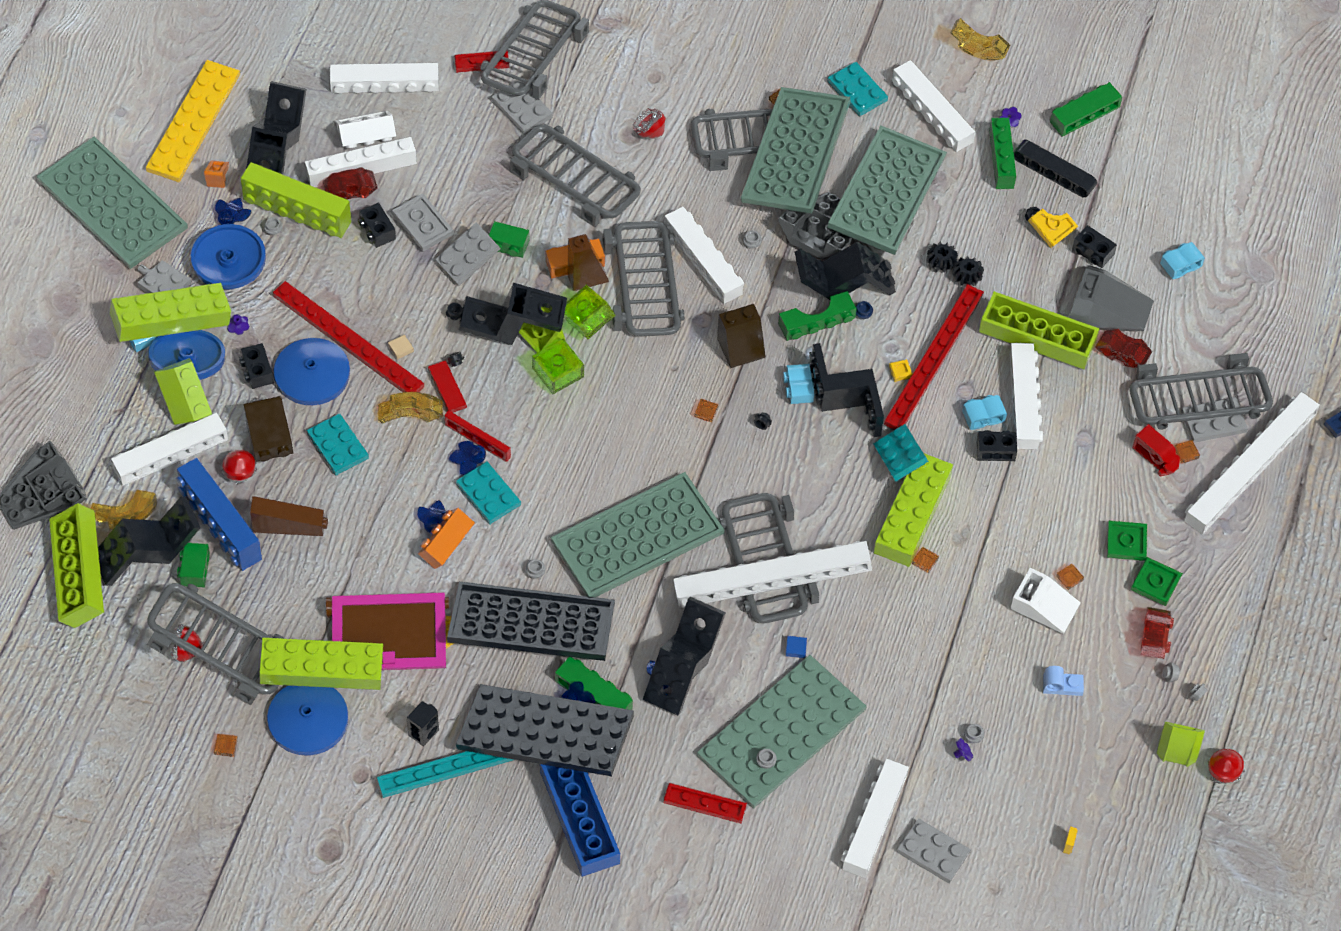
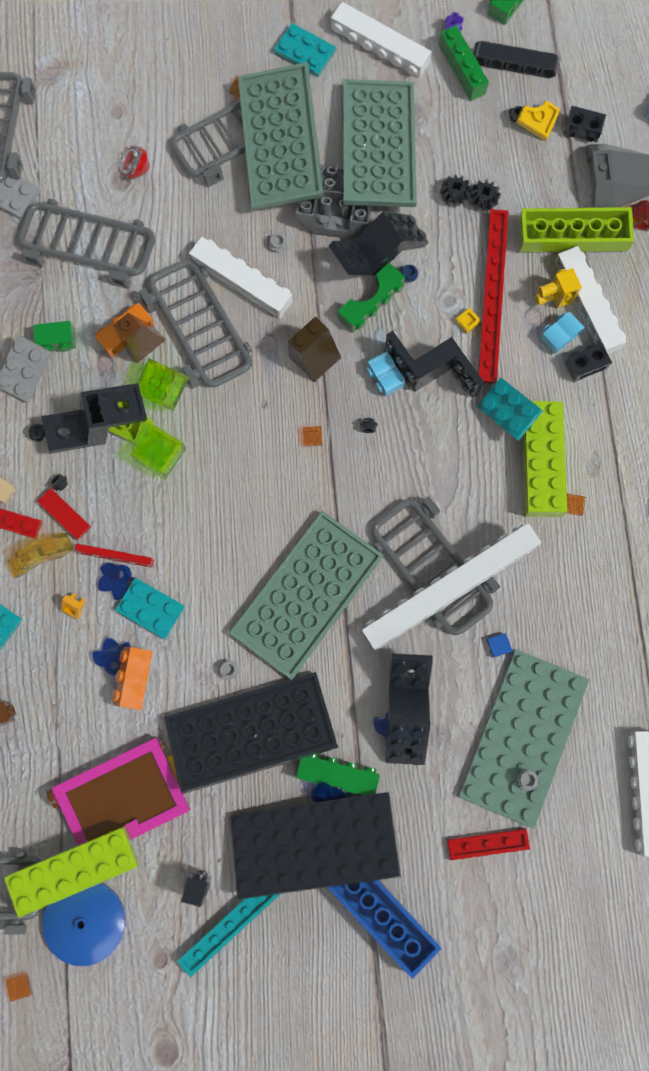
camera: 20 degrees left, 20 degrees up
(419, 462) = (72, 607): none -> light orange tile
(998, 373) = (562, 290): none -> yellow brick

